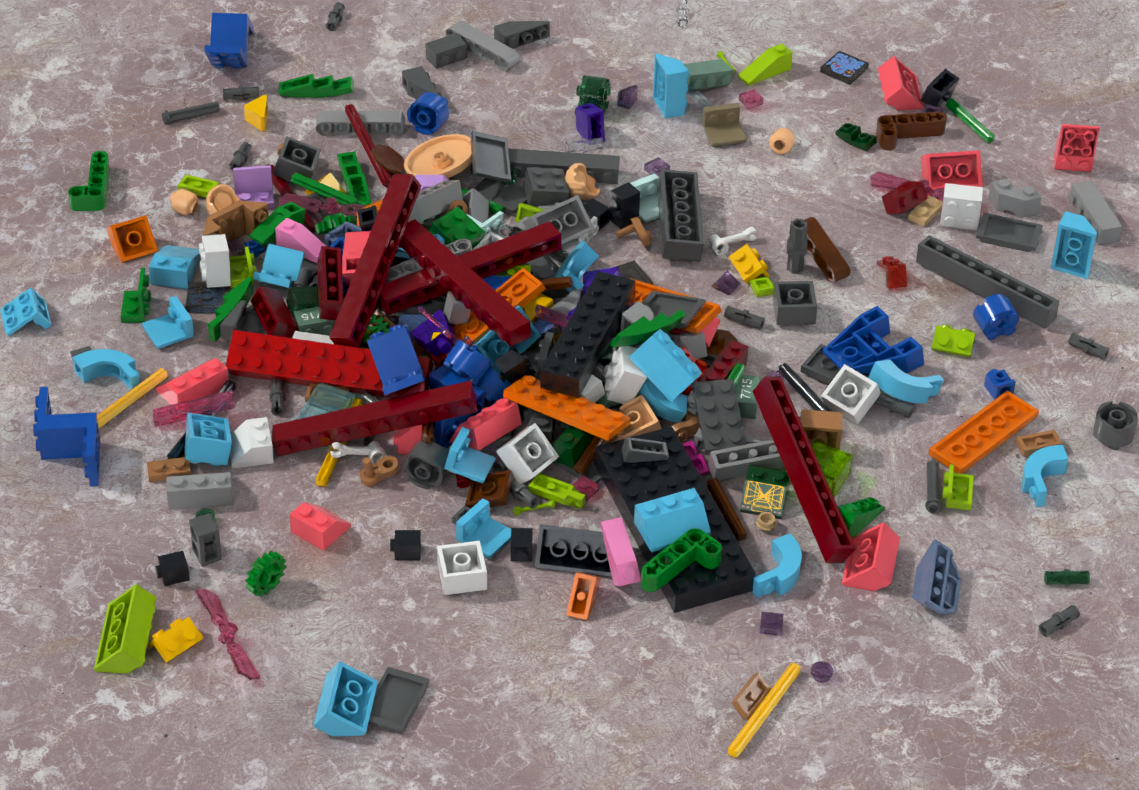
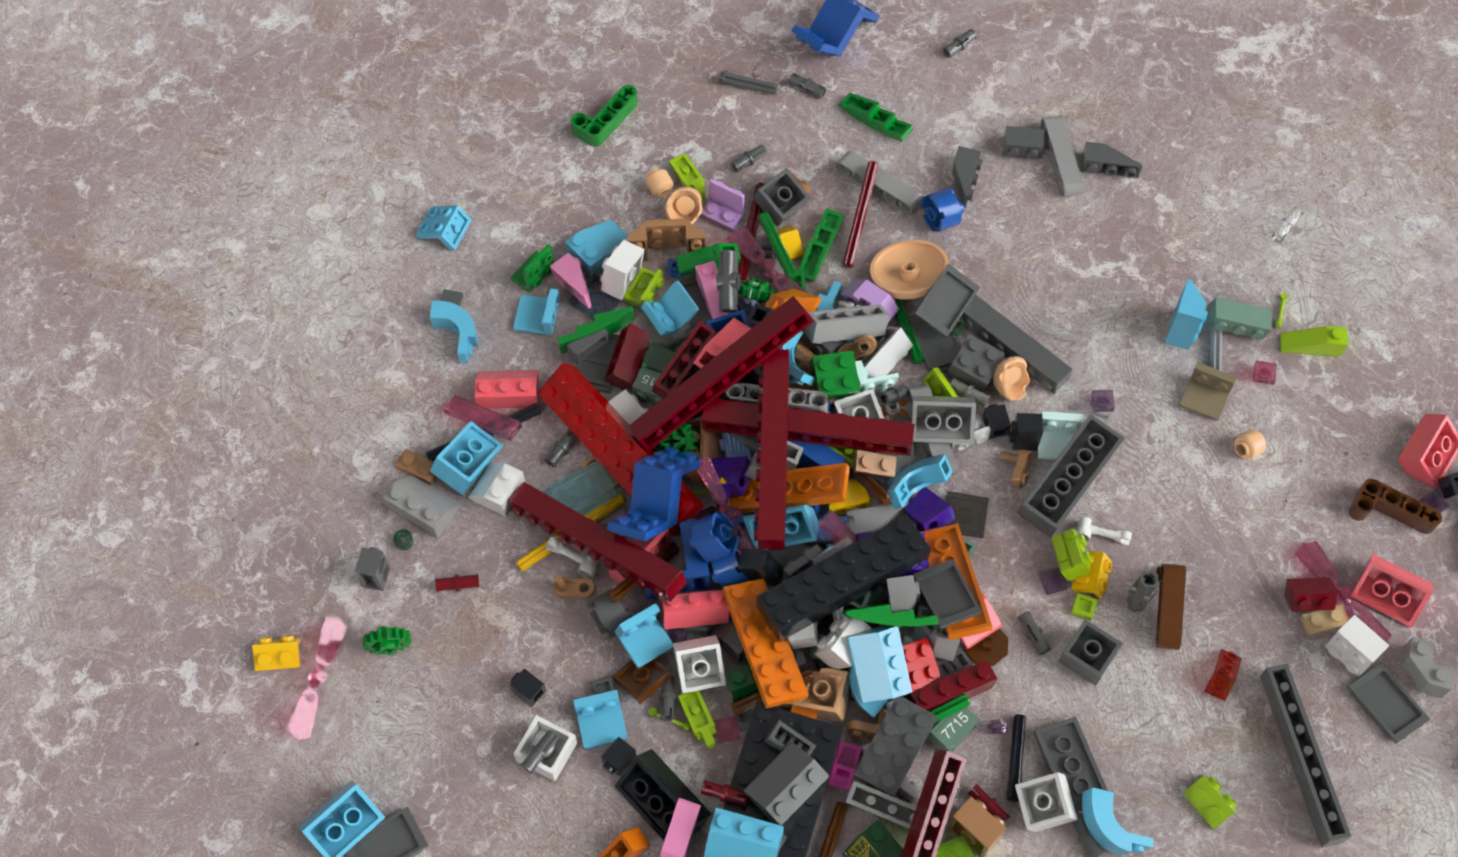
camera: 40 degrees right, 20 degrees up
(67, 436) = (361, 383): blue bracket -> none
(126, 631) = (247, 619): lime slope -> none
(131, 396) = (438, 371): yellow axle -> none
(132, 238) = (584, 198): orange slope -> none
(172, 568) = (332, 577): black brick -> none
(185, 289) = (570, 275): none -> bright pink slope
(236, 247) = (656, 261): slope -> none
(256, 112) = (802, 117): yellow slope -> none
(279, 518) = (457, 582): none -> dark red pin
(314, 220) = (728, 281): none -> dark grey piece
(317, 525) = (481, 611): coral slope -> none
(388, 158) = (866, 239): reddish brown piece -> none
(464, 561) = (539, 751): none -> dark grey axle
(540, 268) = (874, 464): none -> medium nougat plate
(562, 324) = (832, 549): none -> clear pin
(590, 121) = (1082, 301): dark purple torso -> none
(595, 91) = (1111, 278): clear green brick -> none
(627, 97) = (1145, 298): clear purple slope -> none
(627, 504) = (724, 793): none -> dark red pin
(669, 466) = (786, 783): none -> dark grey slope
(726, 256) = (1071, 554): none -> lime brick
(844, 67) = (1395, 388): tile -> none
(852, 135) = (1331, 483): dark green slope -> none
(863, 345) = (1104, 758): blue wedge -> none
(996, 316) = (1274, 806): blue brick -> none
(1074, 245) = (1428, 777): medium azure slope -> none

